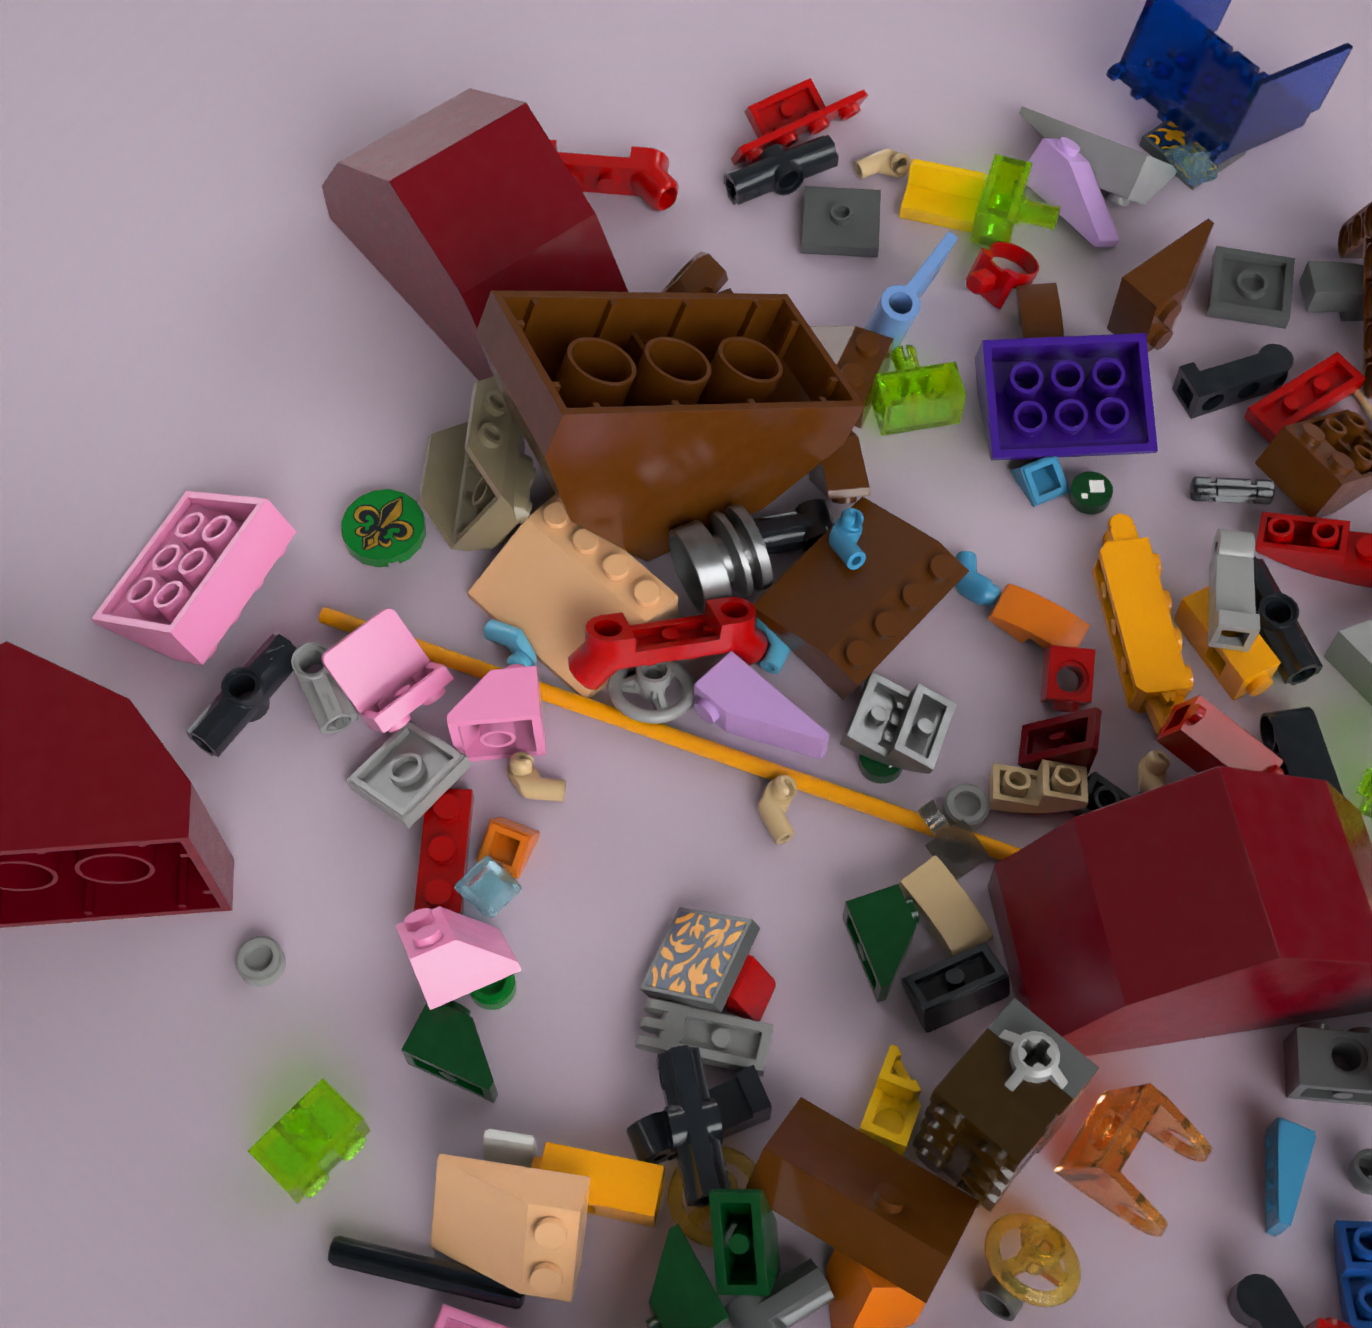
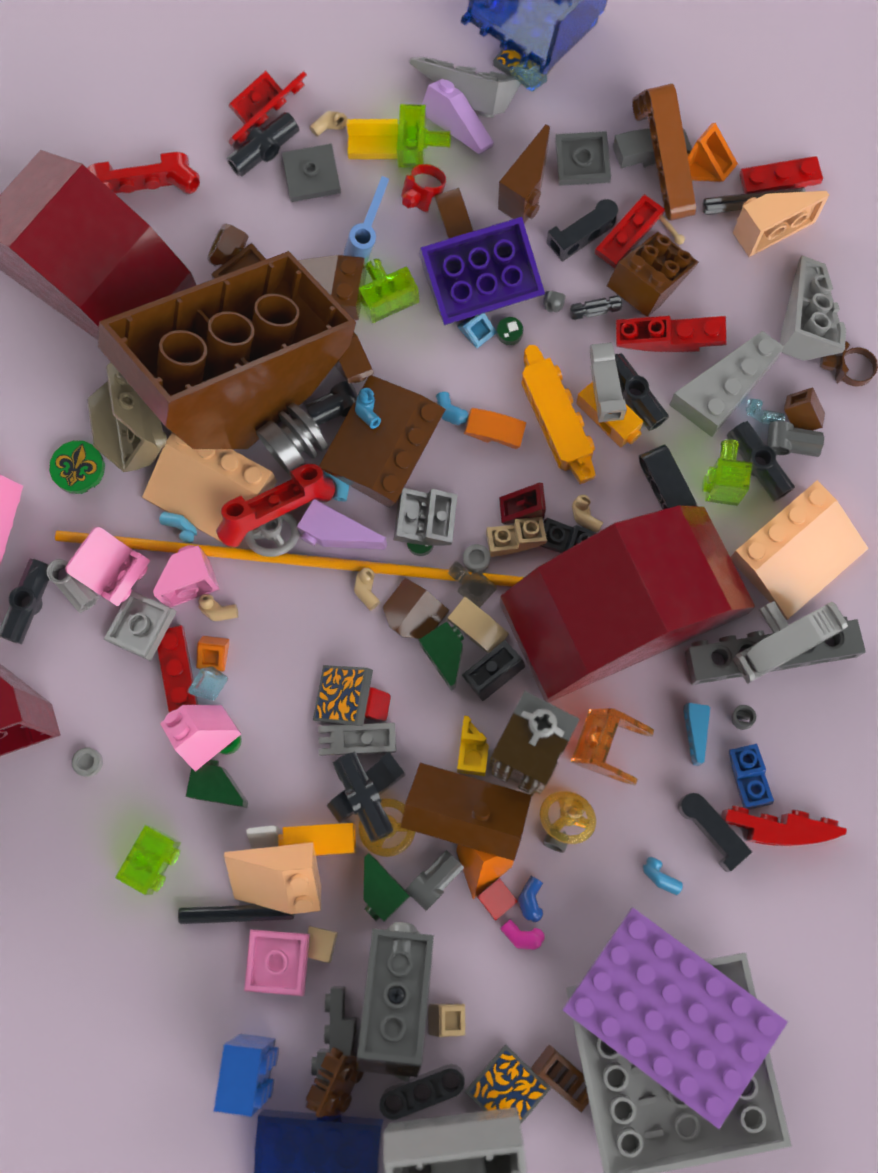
camera: 10 degrees left, 15 degrees up
(744, 1242) = (407, 855): dark green slope -> none
(846, 859) = (413, 610): none -> reddish brown slope
(1079, 661) = (513, 451): red brick -> none
(1168, 465) = (553, 301): none -> dark grey hinge
(1209, 739) = (617, 487): brick -> none

